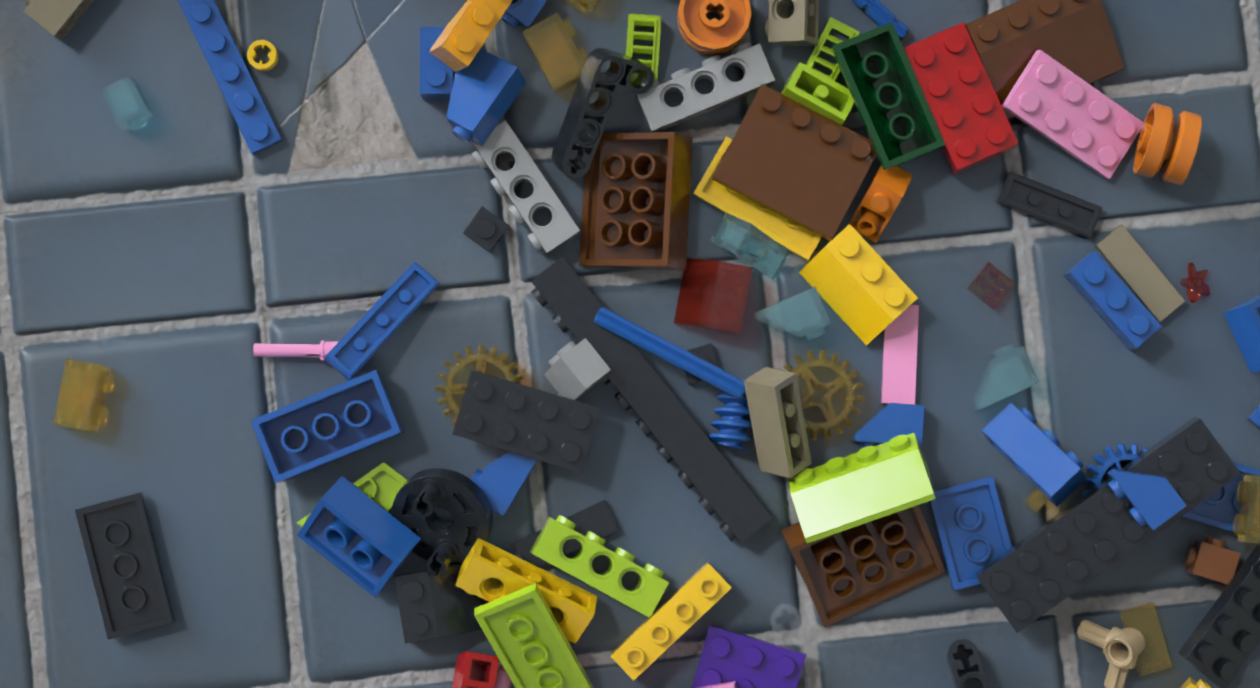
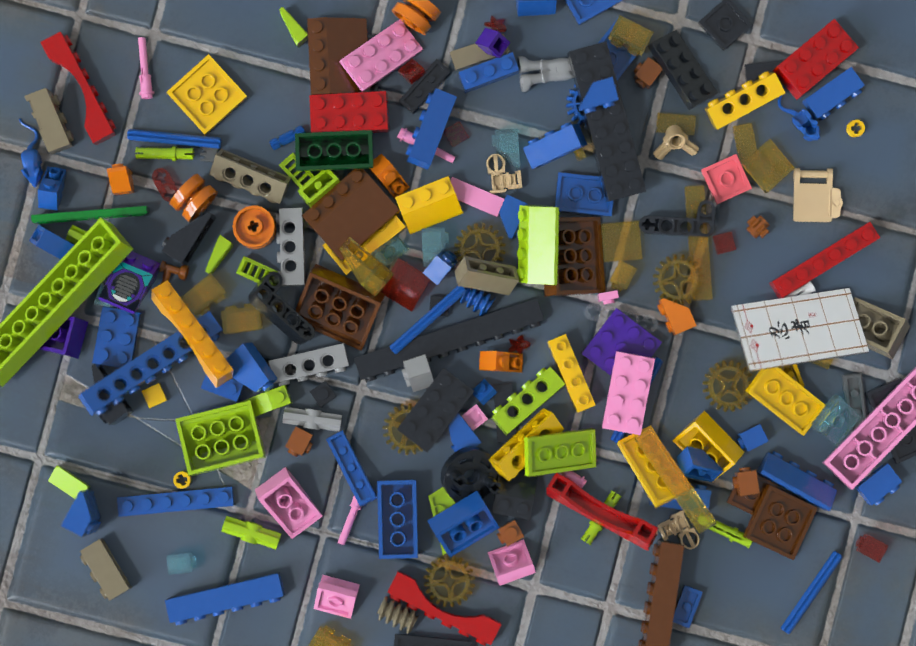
camera: 70 degrees left, 0 degrees up
(97, 195) = (225, 597): none -> blue brick
(166, 374) = (336, 596): none -> bright pink bracket
(172, 484) = (397, 615): none -> dark tan piece
(202, 624) = (479, 626): none -> red arch
(218, 198) = (251, 532): none -> lime piece
(250, 535) = (458, 579): none -> clear yellow gear
(288, 239) = (288, 503): none -> bright pink slope
(326, 638) = (511, 562): none -> bright pink bracket
(351, 90) = (220, 438): none -> lime slope
(372, 618) = (509, 533): none -> dark orange brick
(393, 220) = (299, 442): none -> dark orange brick
(433, 137) = (270, 400): none -> lime slope
(438, 227) = (312, 419): none -> light grey piece
(540, 489) = (474, 417): none -> bright pink plate
(587, 489) = (484, 392): none -> blue plate
(646, 498) = (500, 361): none -> orange slope
(685, 517) = (518, 345): none -> clear red plant
(716, 220) = (366, 268): none -> clear yellow slope
(764, 341) = (440, 266): none -> slope
(818, 634) = (608, 297): none -> bright pink plate
(862, 644) = (622, 276): none -> clear yellow brick
(918, 622) = (621, 241): none -> clear yellow tile
(944, 390) = (503, 180): none -> tan piece
(955, 226) = (406, 136): none -> bright pink pin
(984, 241) = (431, 128): none -> blue brick
(1066, 174) = (411, 71): none -> clear red plate
(1154, 399) = (550, 70): none -> light grey piece
(1164, 288) = (492, 42): none -> dark purple brick

